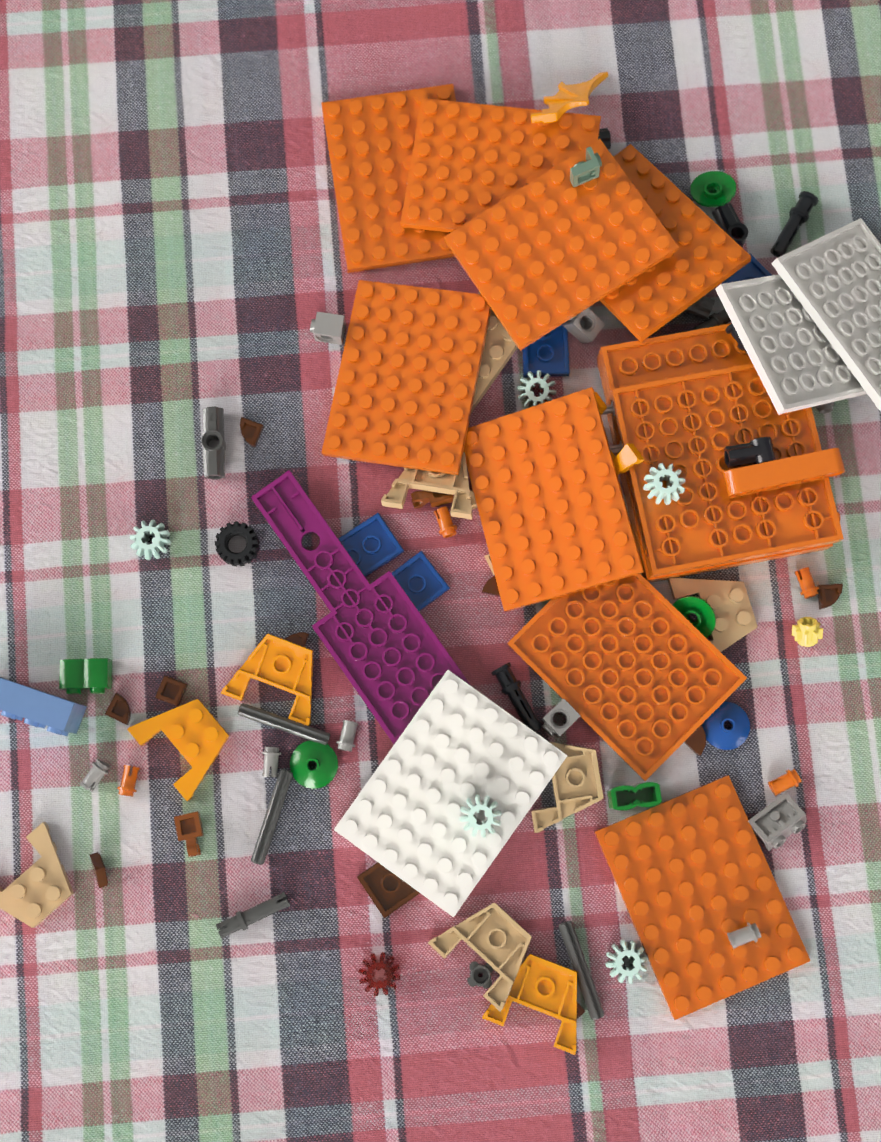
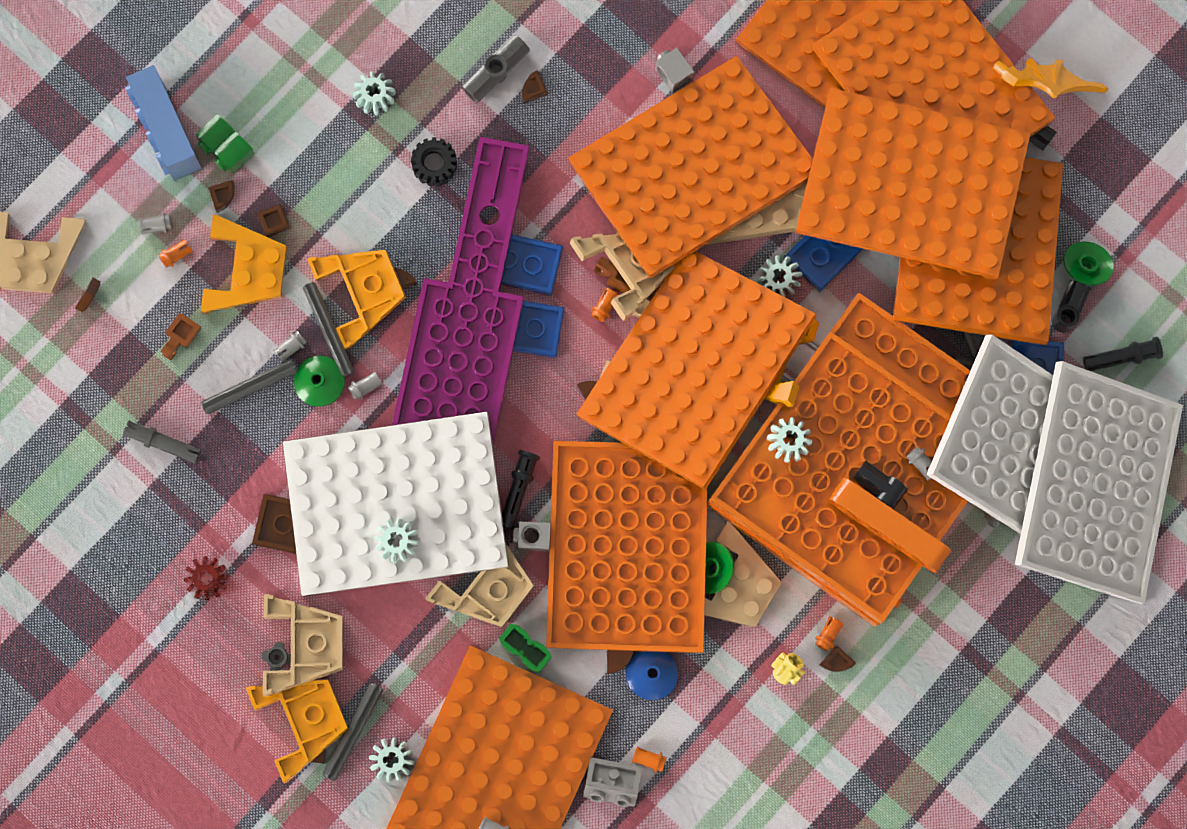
camera: 40 degrees right, 0 degrees up
(586, 171) = (986, 146): sand green bracket -> none
(592, 326) = (871, 274): light grey brick -> none
(755, 411) = (920, 461): none -> light grey pin

